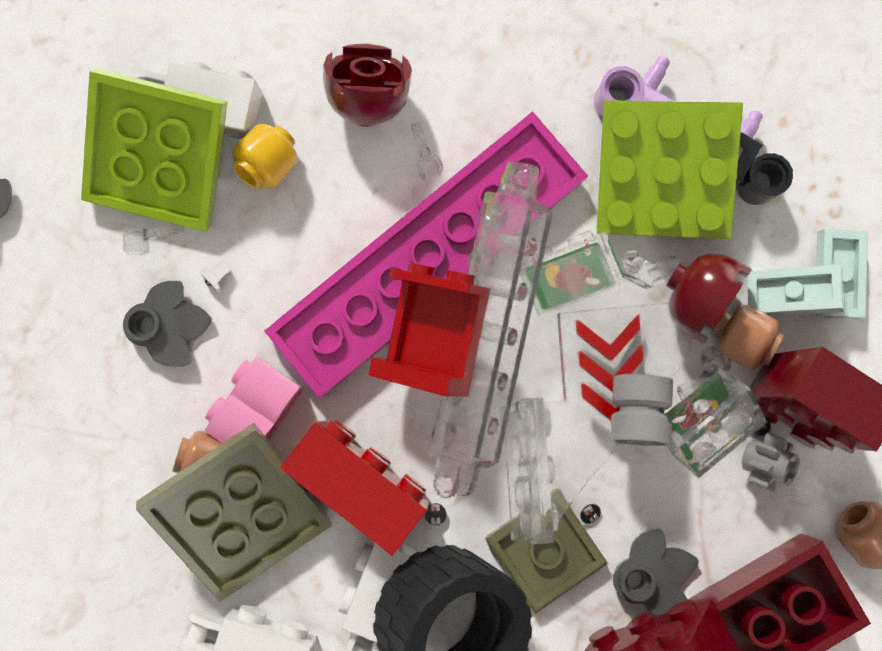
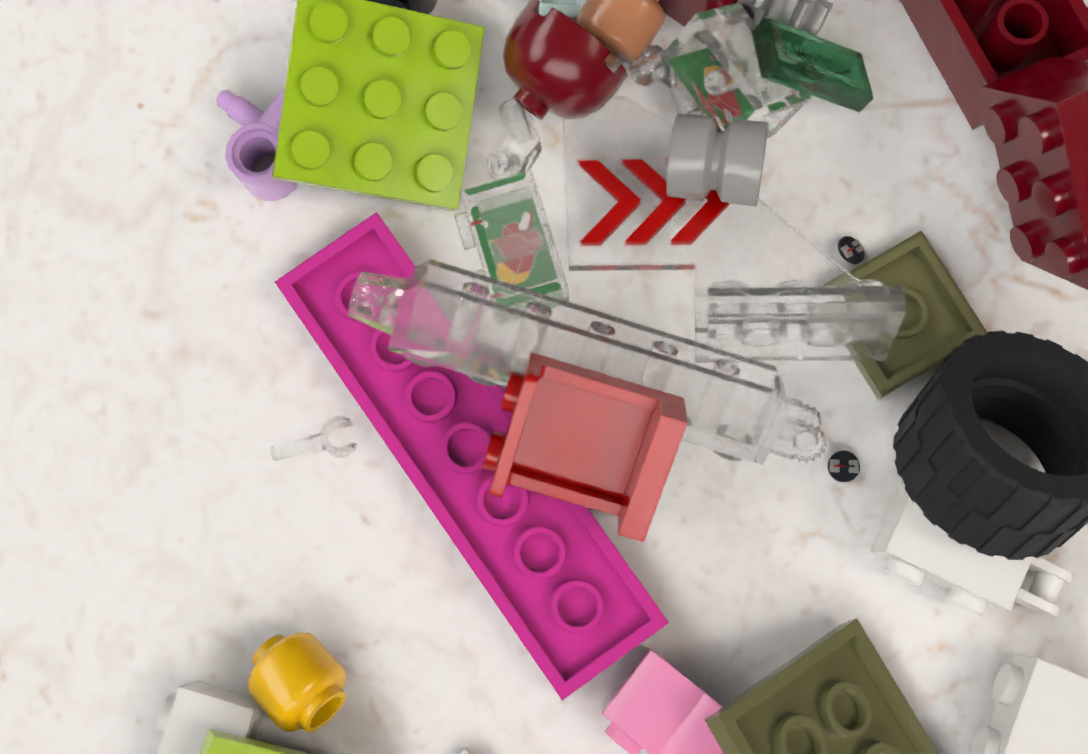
camera: 75 degrees left, 5 degrees down
(357, 484) = (804, 568): red brick -> none
(366, 83) = (206, 516): dark red cylinder -> none
(660, 570) = (935, 162): dark grey plate -> none
(723, 477) = (811, 65): none -> clear green tile

